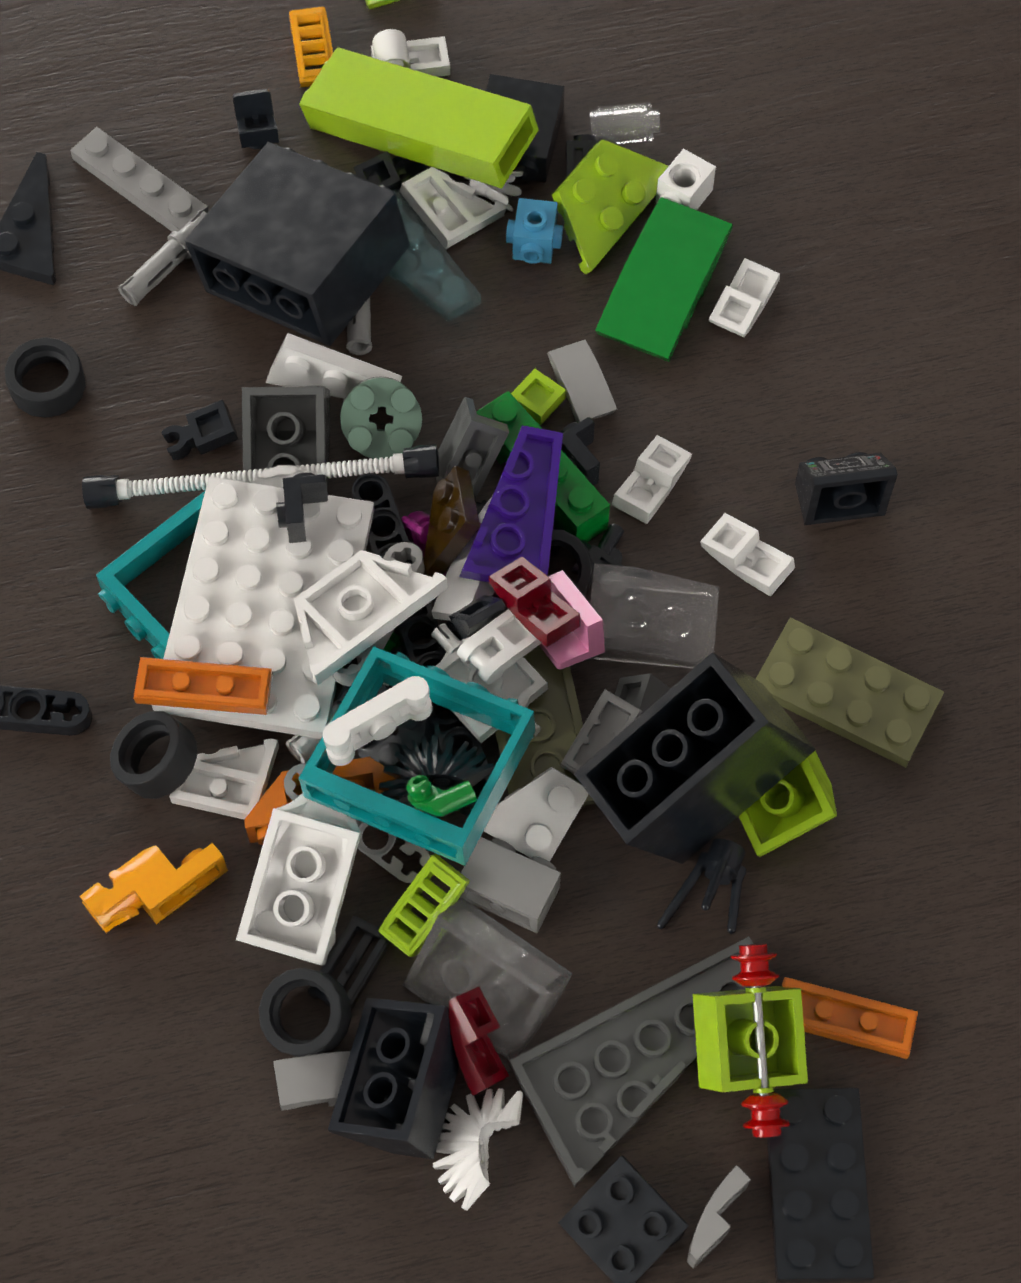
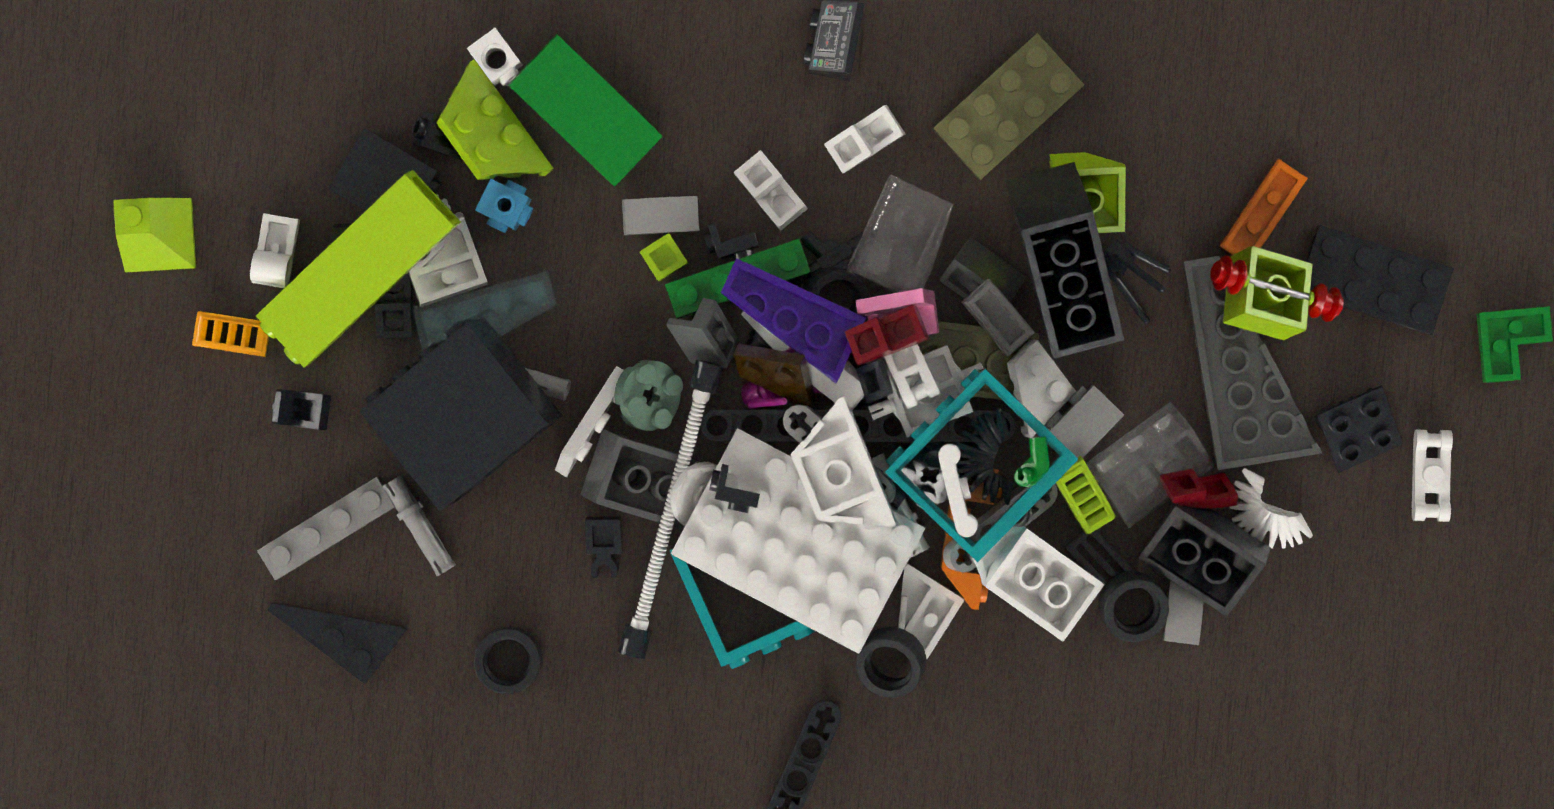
camera: 70 degrees left, 25 degrees up
(154, 884) = (991, 692): light orange plate -> none
(203, 686) = (862, 610): orange tile -> none
(625, 123) = (410, 85): clear head -> none
(711, 1226) = (1384, 370): light grey slope -> none
(744, 298) = (623, 48): white slope -> none

